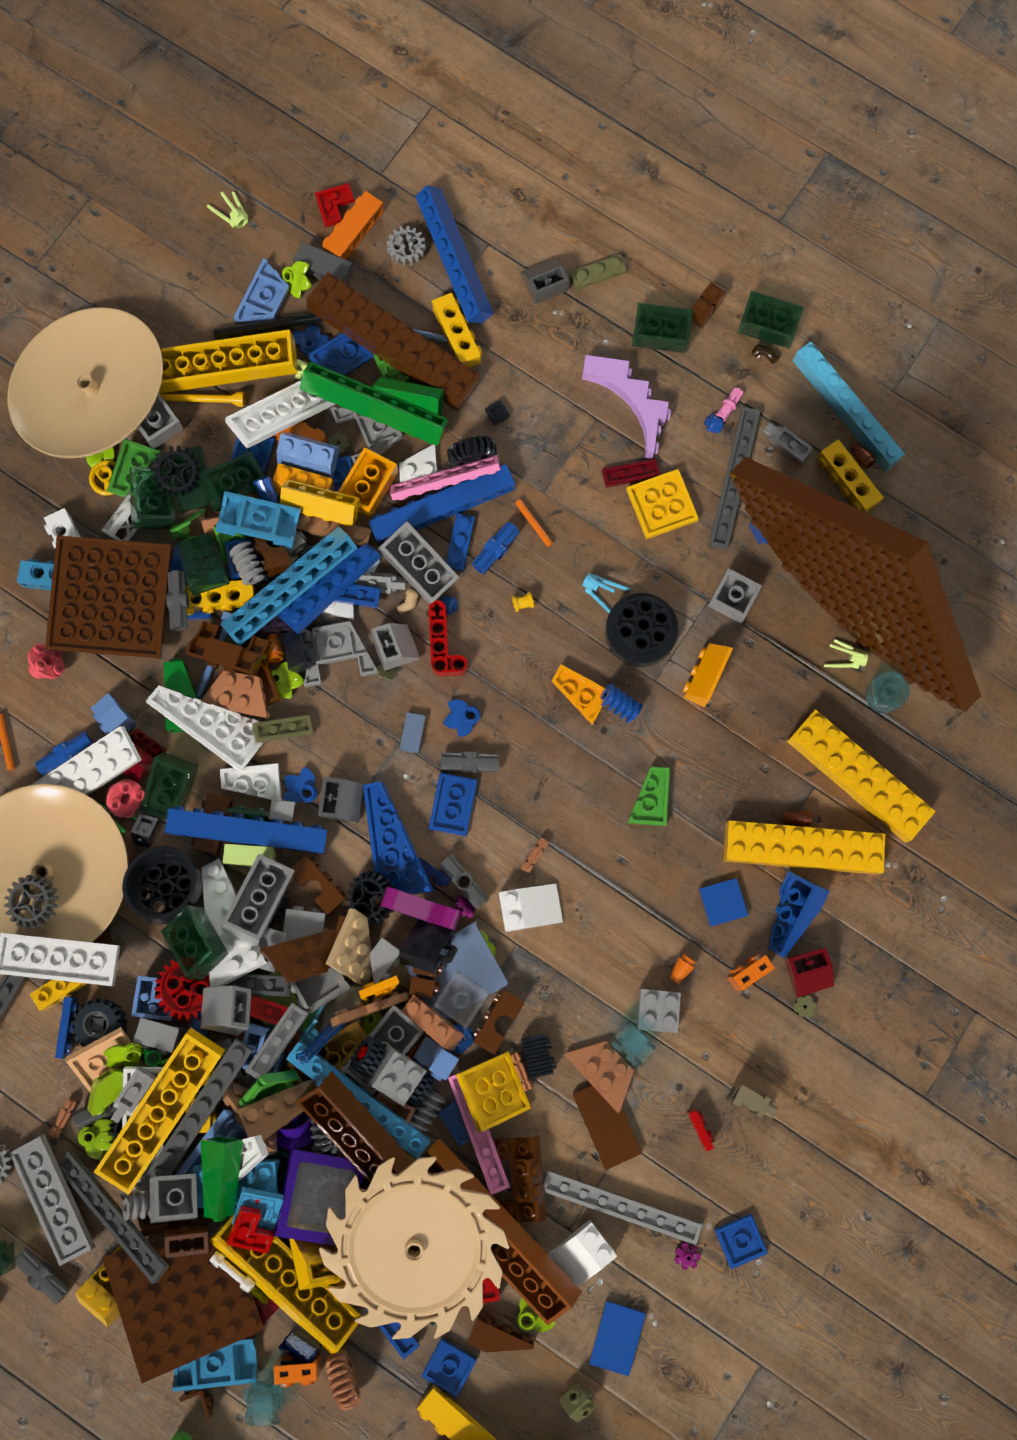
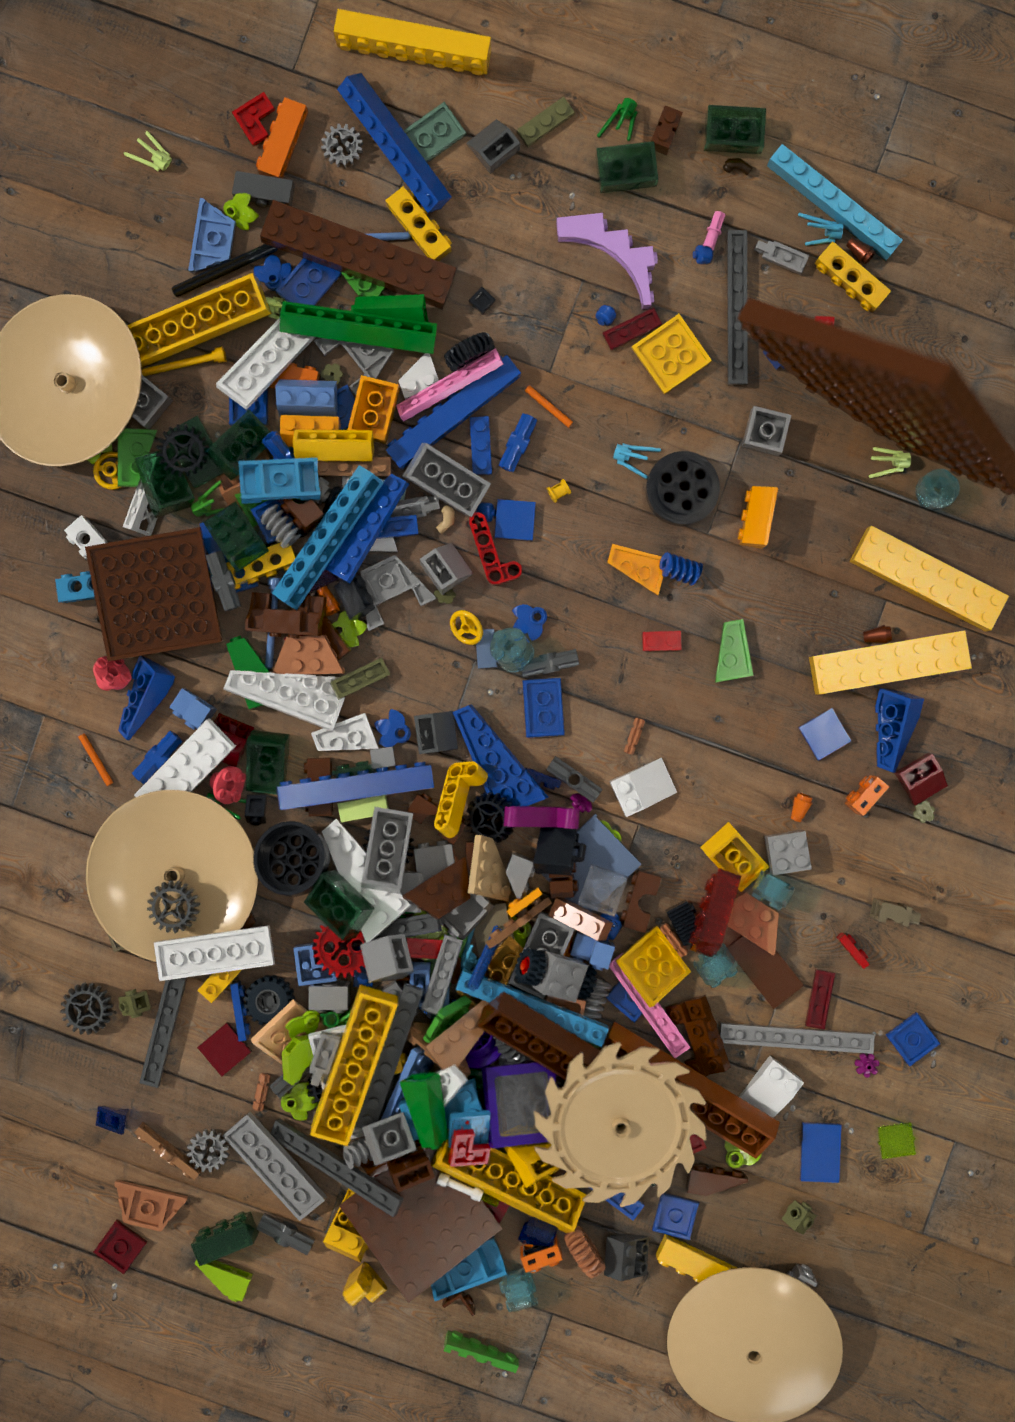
camera: 10 degrees left, 10 degrees up
(38, 1063) = (224, 1049): none -> dark red tile
(79, 685) = (148, 690): none -> blue wedge
(104, 1349) = (363, 1283): none -> yellow beam
(342, 864) = (454, 795): none -> yellow beam
(386, 1397) = (626, 1256): none -> dark grey slope
(401, 705) = (469, 624): none -> yellow piece
(436, 738) = (511, 649): none -> clear light blue brick
(473, 619) = (515, 520): none -> blue tile
(495, 173) = (412, 42): none -> yellow brick
(495, 256) = (435, 132): none -> sand green tile
(557, 1107) = (717, 968): none -> clear light blue brick
(568, 1051) = (715, 912): none -> clear red brick
(585, 769) = (661, 641): none -> red plate
(603, 1001) = (733, 853): none -> yellow slope
(609, 455) = (605, 315): none -> blue piece
(655, 1172) = (820, 999): none -> dark red tile
(673, 280) = (627, 110): none -> green plant
(699, 1347) = (896, 1140): none -> clear neon green piece
(840, 431) = (832, 229): none -> medium azure plant

